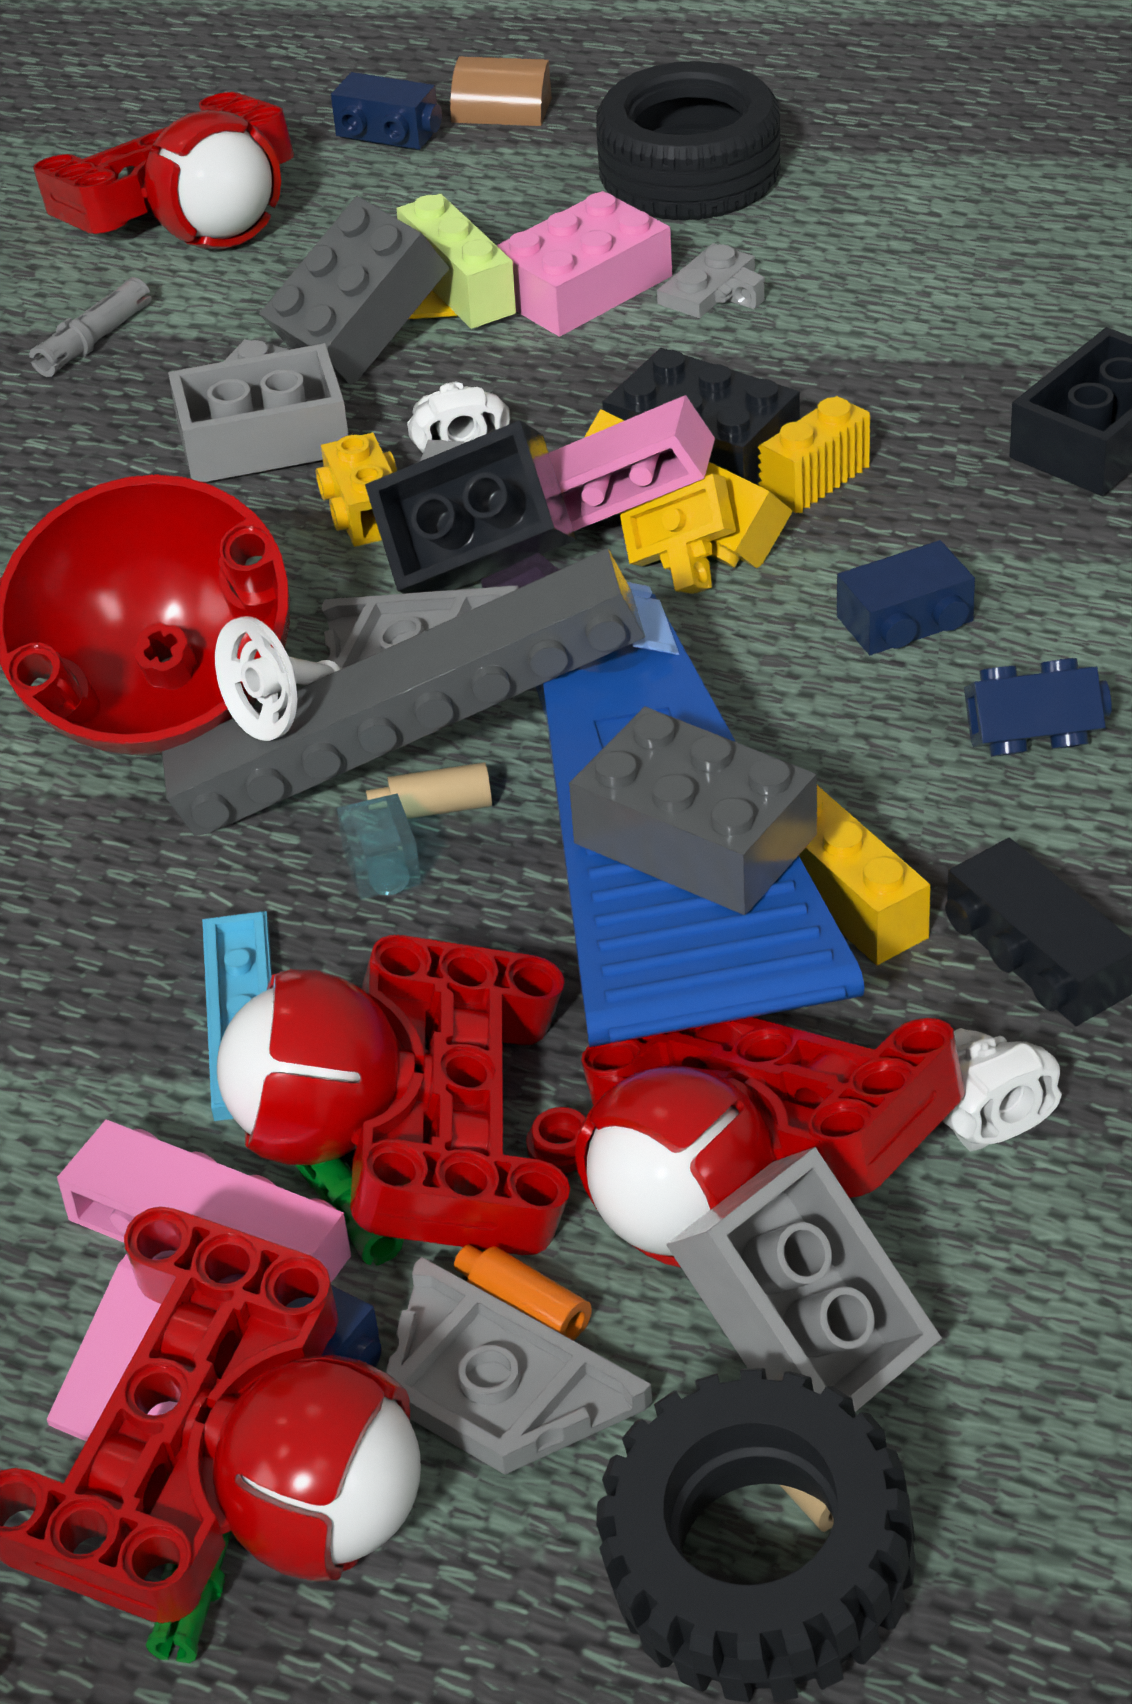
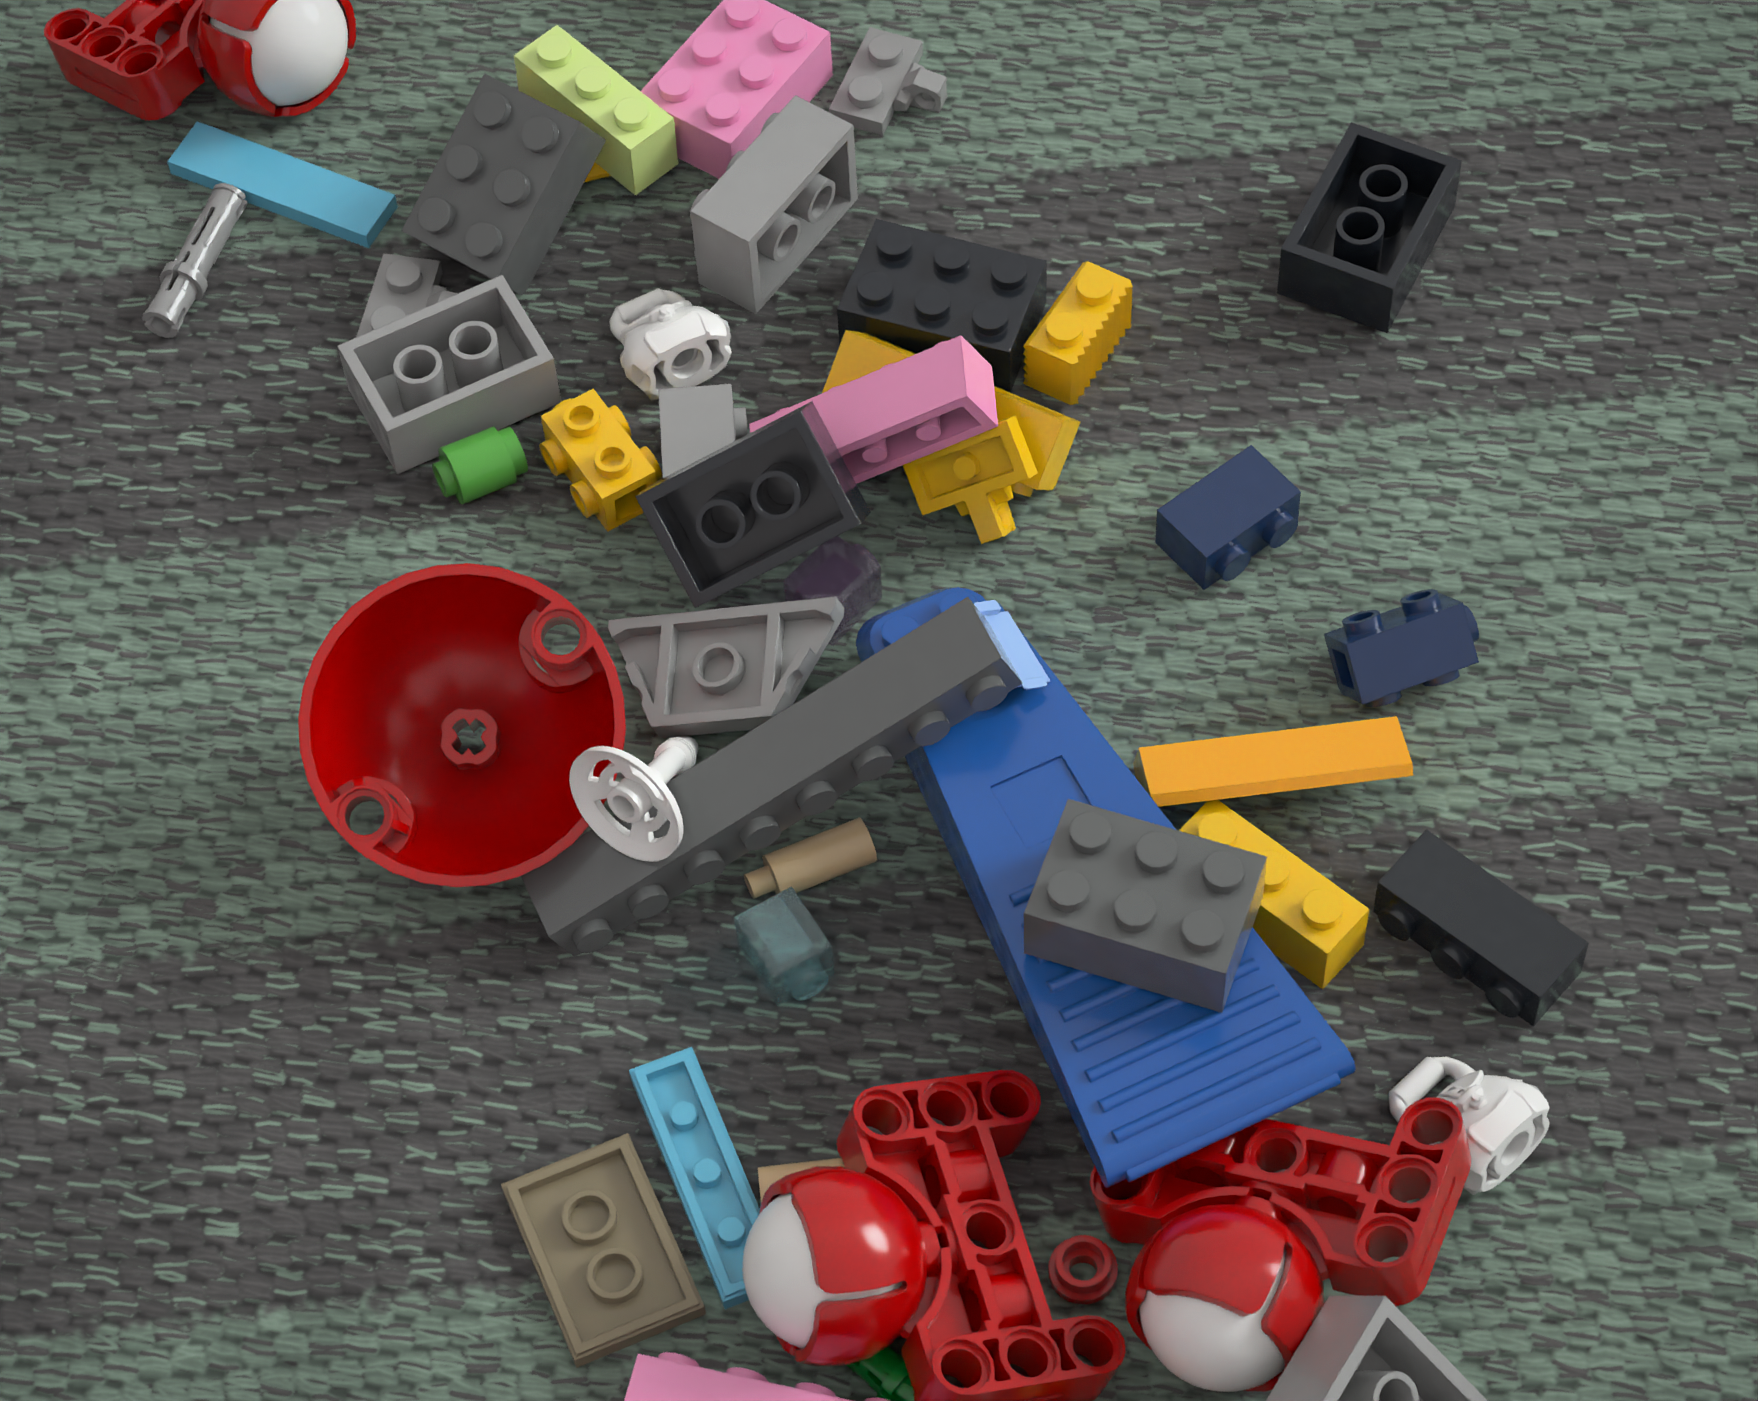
camera: 15 degrees left, 15 degrees up
(121, 1053) = (603, 1250): none -> dark tan tile
(186, 291) = (284, 184): none -> medium azure tile
(262, 479) = (479, 464): none -> bright green brick
(578, 332) = (774, 203): none -> light grey brick
(892, 762) = (1273, 761): none -> light orange slope

